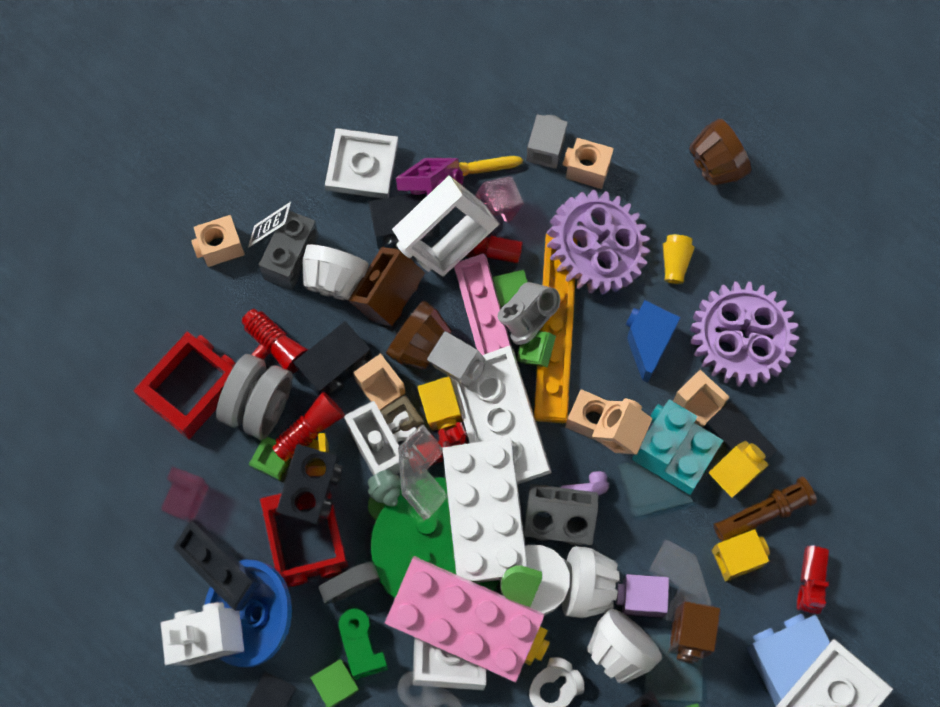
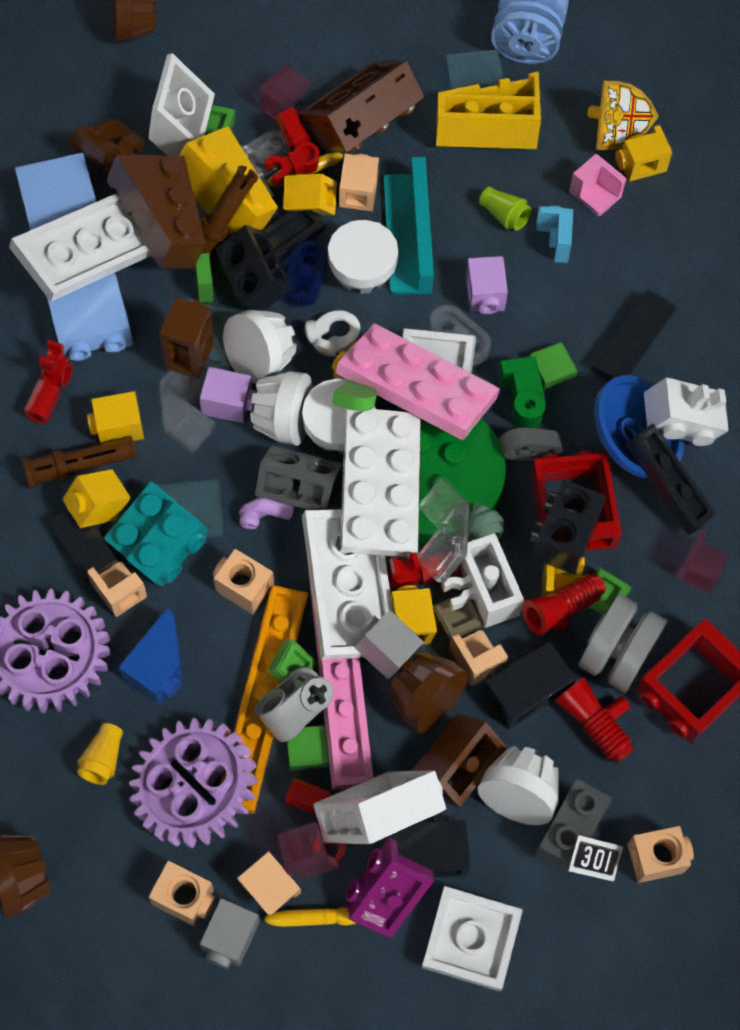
camera: 175 degrees left, 5 degrees down
(527, 175) = (269, 884): none -> light nougat panel
(622, 426) = (215, 546): light nougat brick -> none

